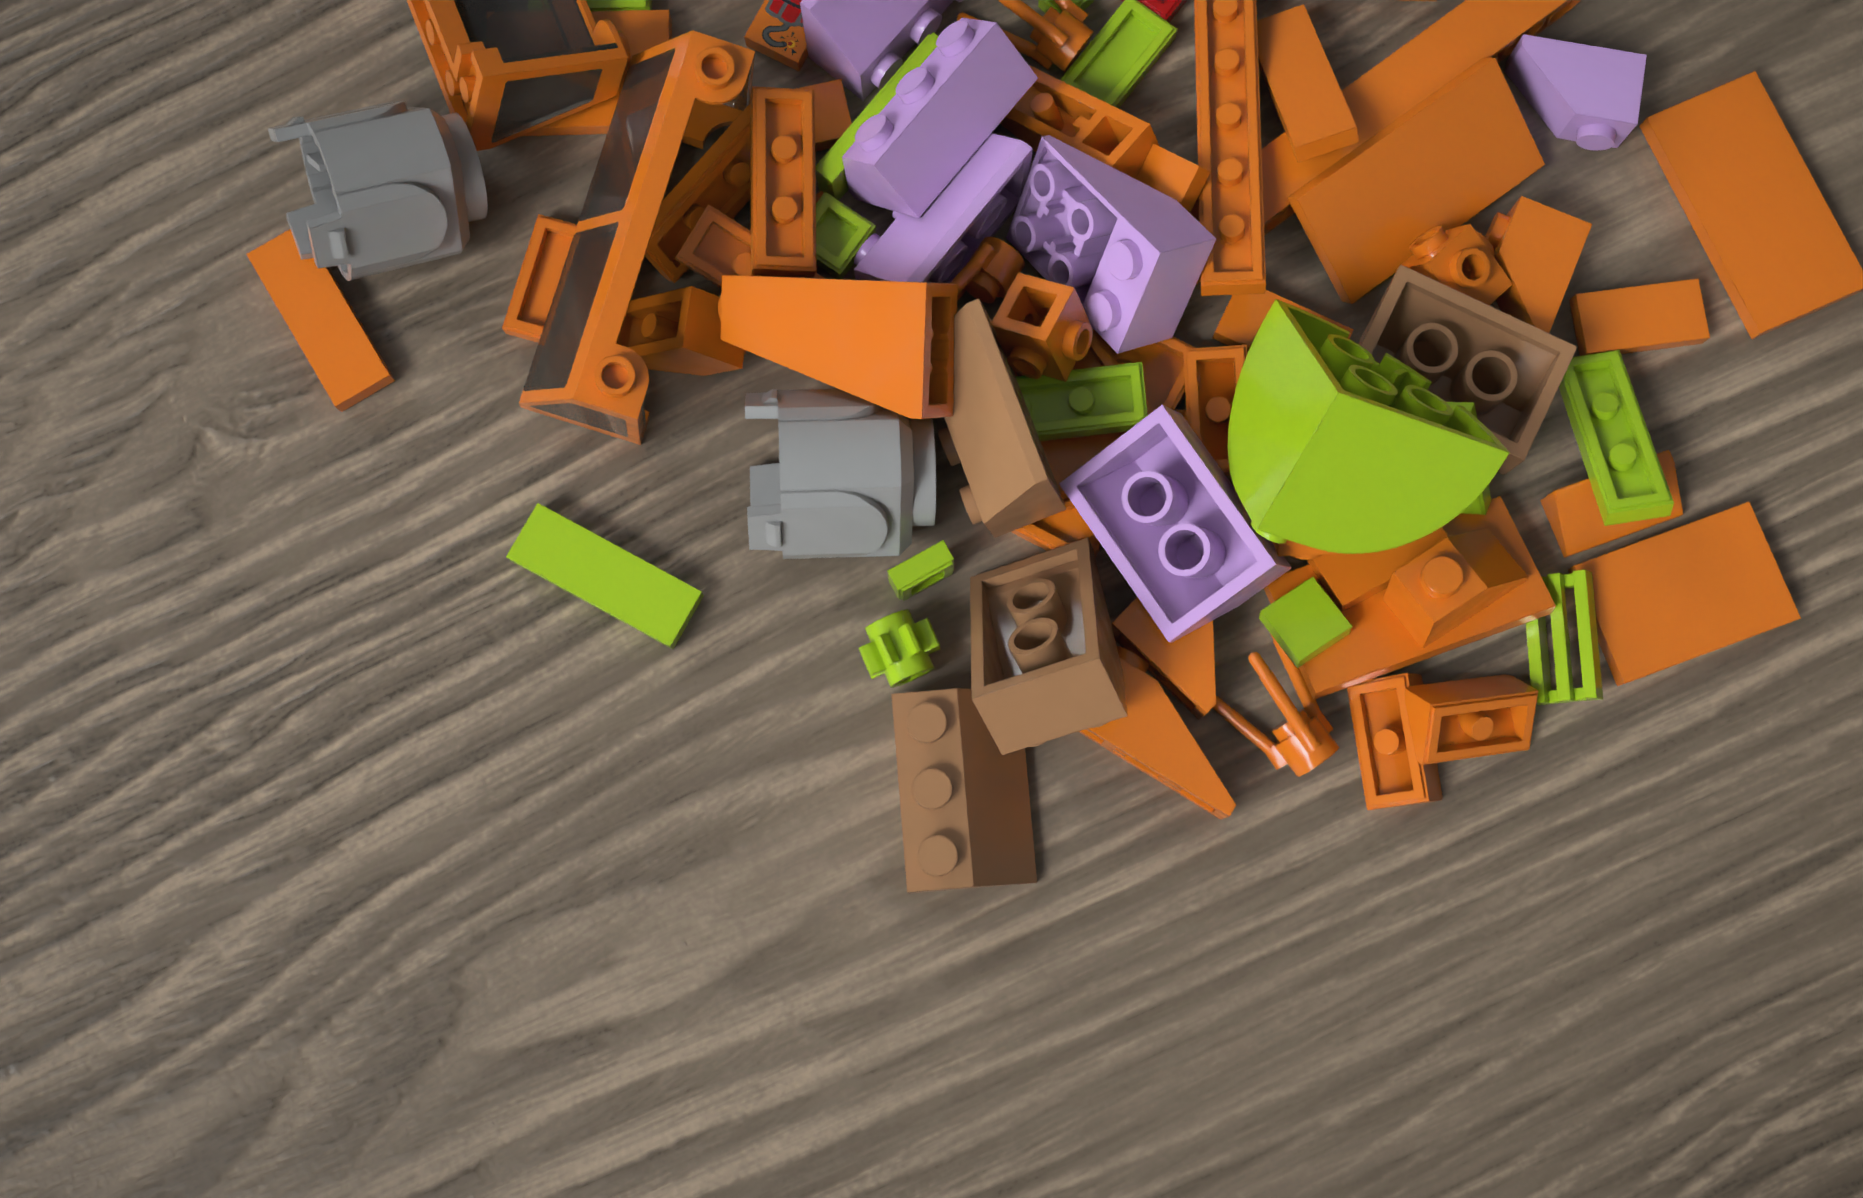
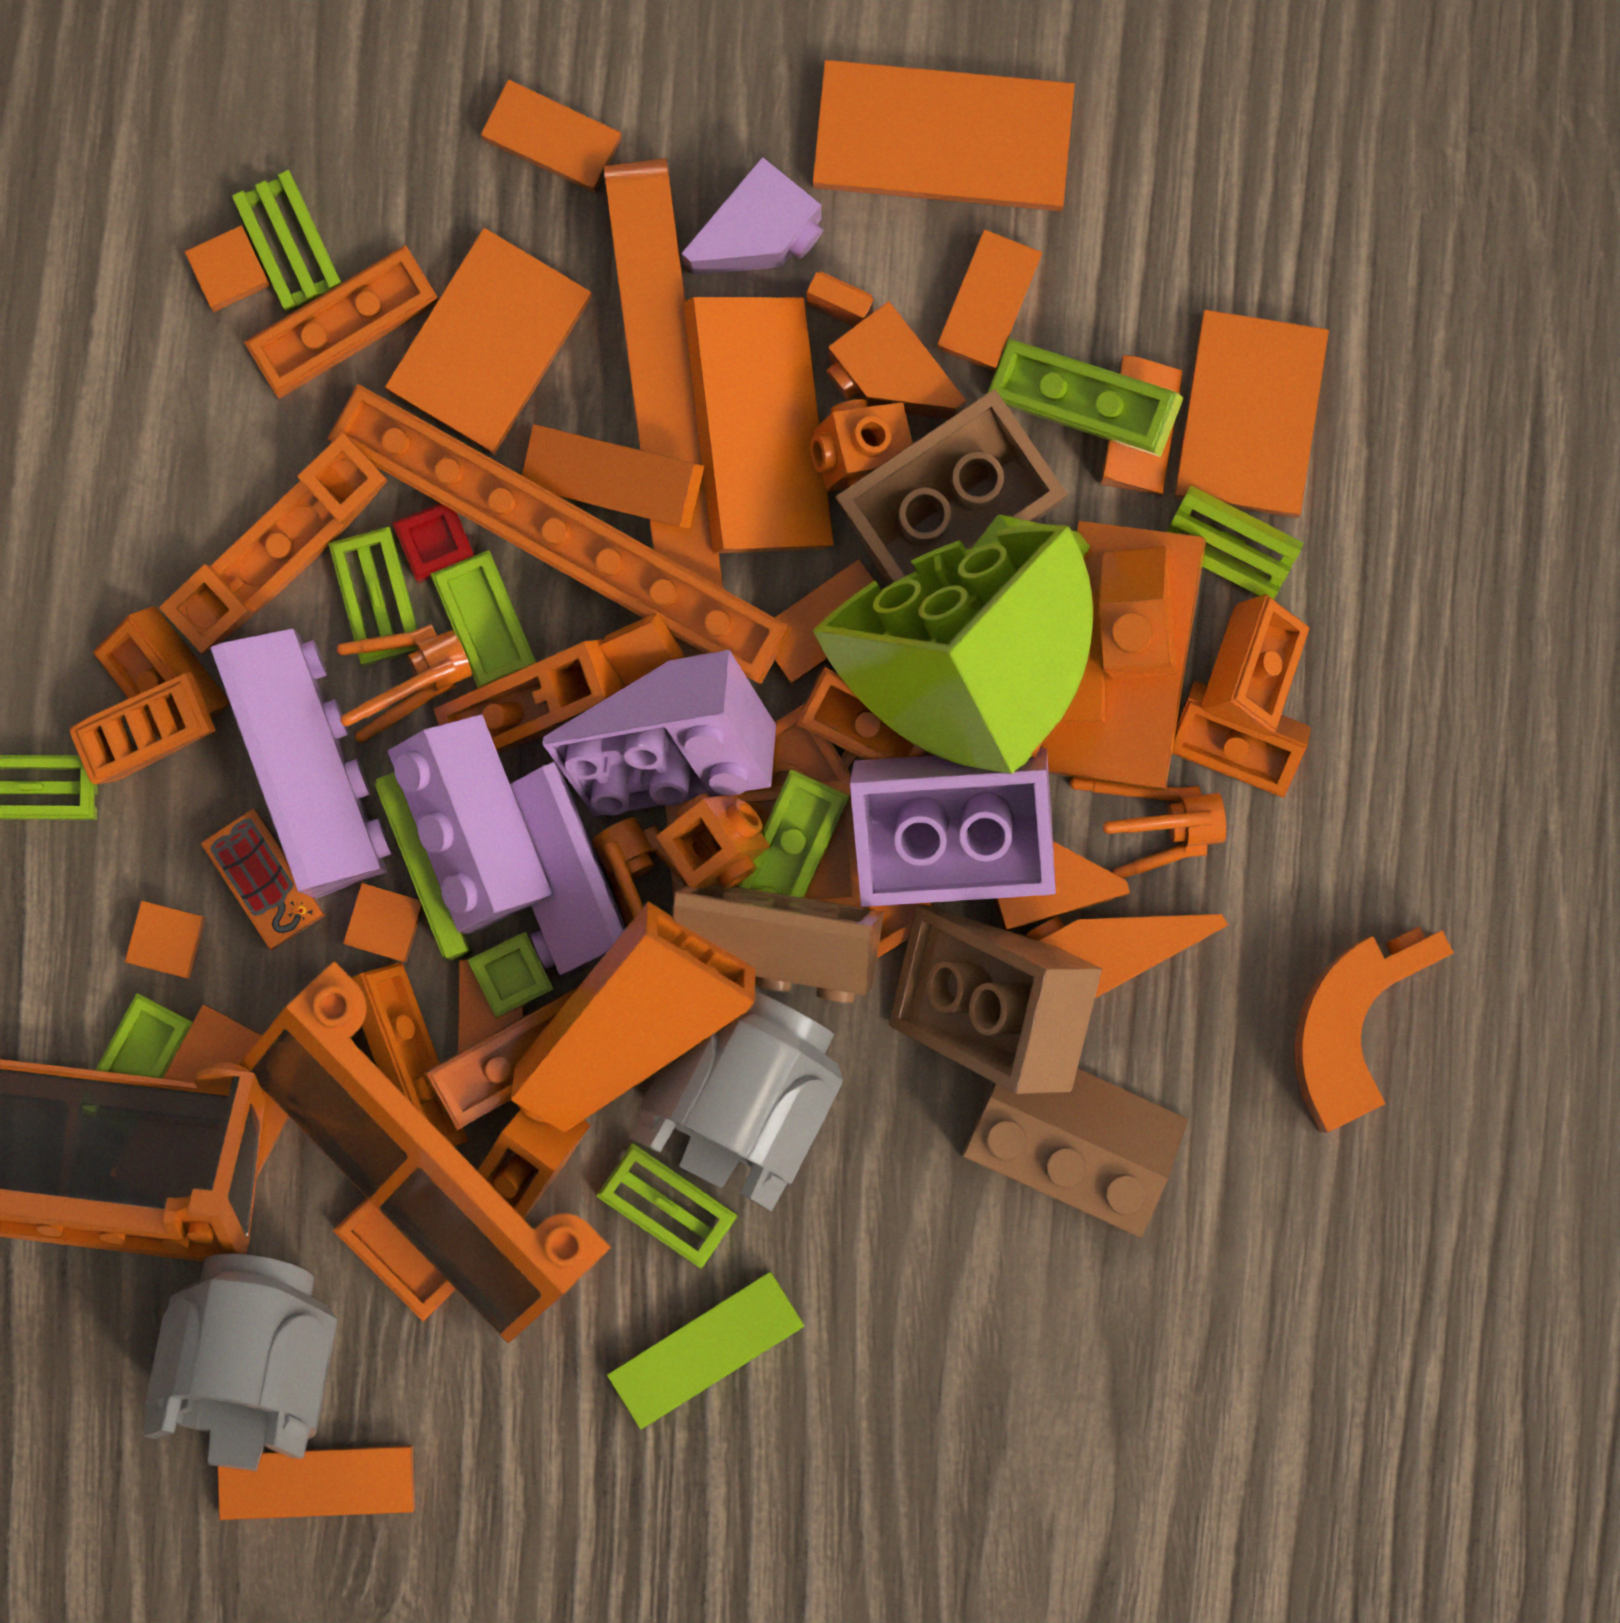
camera: 60 degrees left, 5 degrees up
(706, 528) = (622, 1174): none -> lime tile
(783, 182) = (443, 994): orange tile -> none
(899, 648) = (921, 1125): lime gear -> none
(921, 571) = (863, 1066): lime tile -> none
(1174, 969) = (1332, 1017): none -> orange arch
(1305, 622) = (1097, 760): lime tile -> none
(1564, 184) = (839, 299): none -> orange tile

